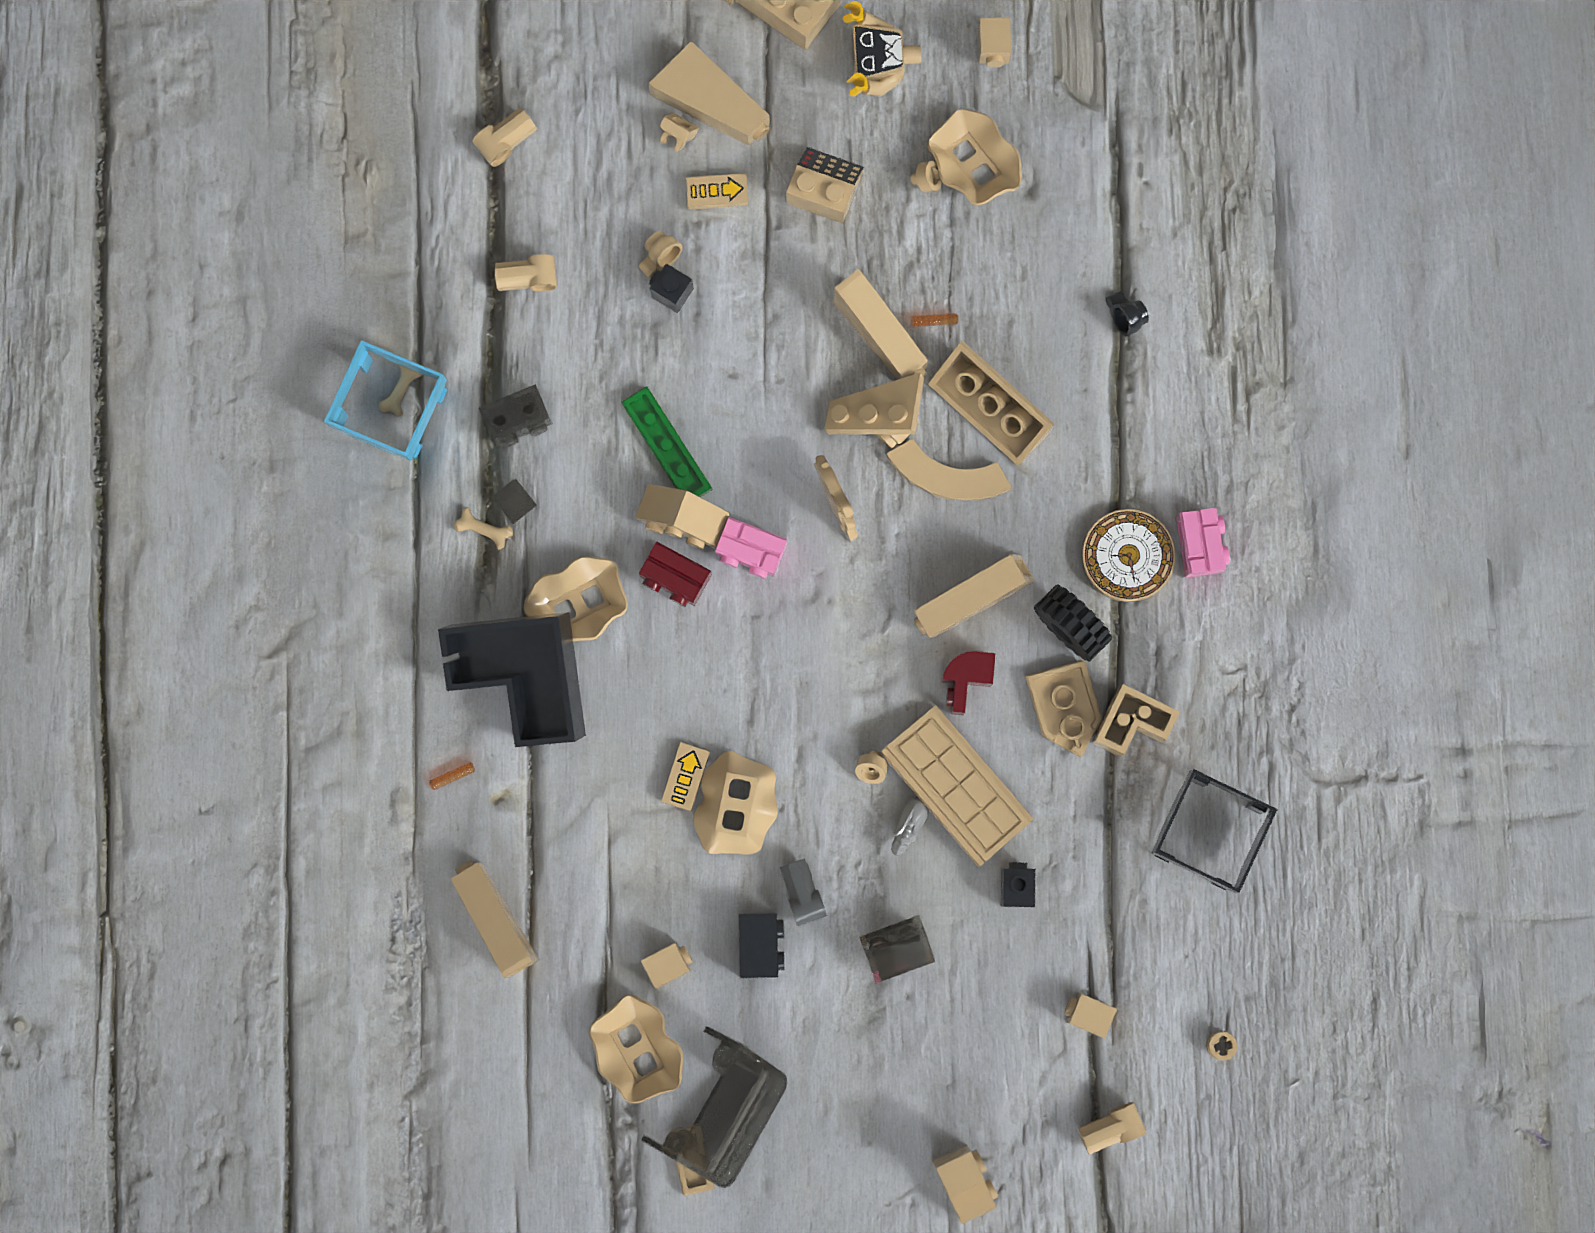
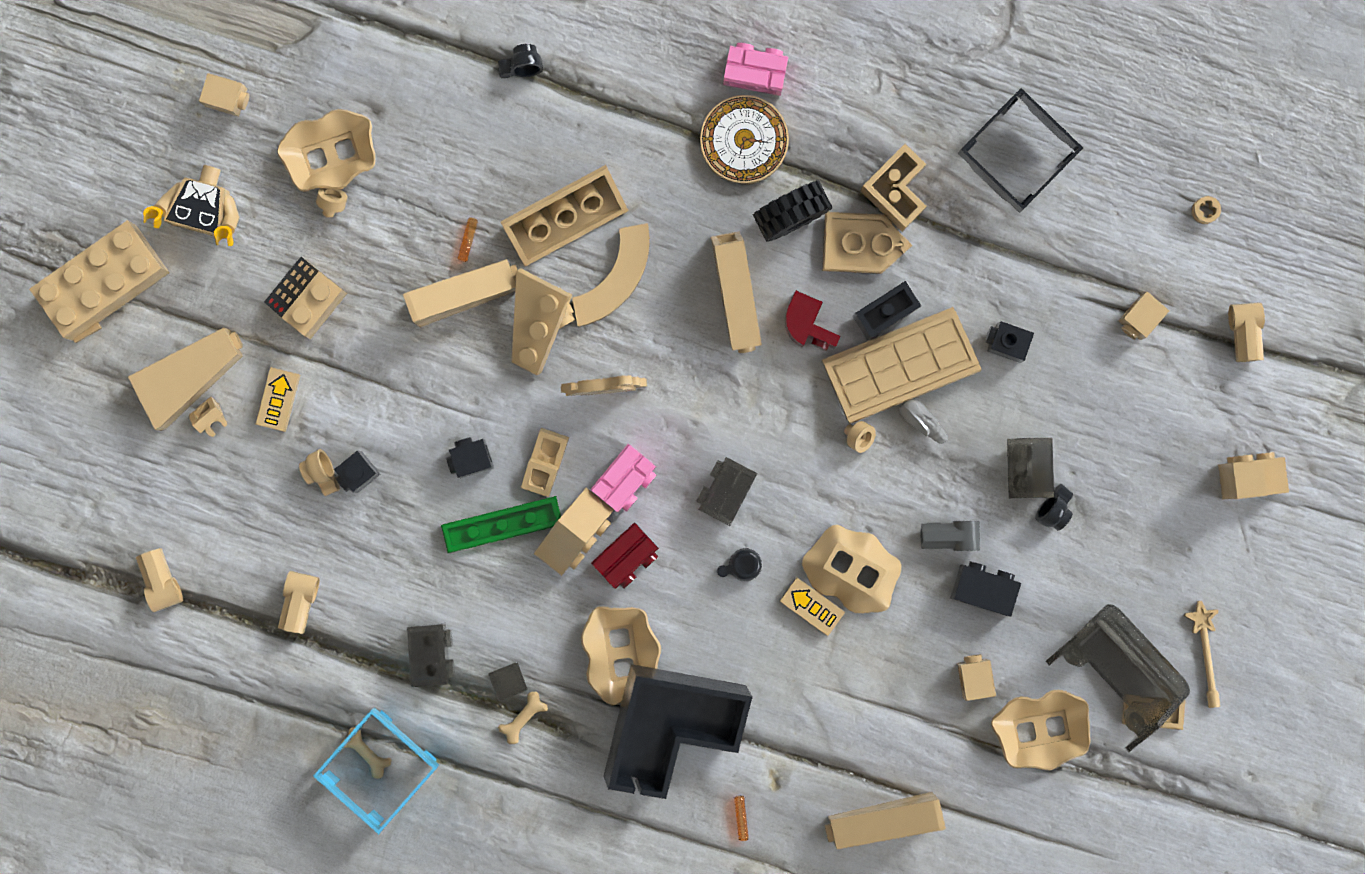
camera: 75 degrees left, 5 degrees up
(704, 695) = (743, 564): none -> black piece
(721, 391) = (469, 457): none -> black brick
(741, 467) = (545, 462): none -> tan slope
(772, 652) = (726, 491): none -> clear smoke brick
(799, 1181) = (1202, 622): none -> tan piece
(862, 990) = (1054, 510): none -> black piece
(1006, 751) = (886, 310): none -> black brick

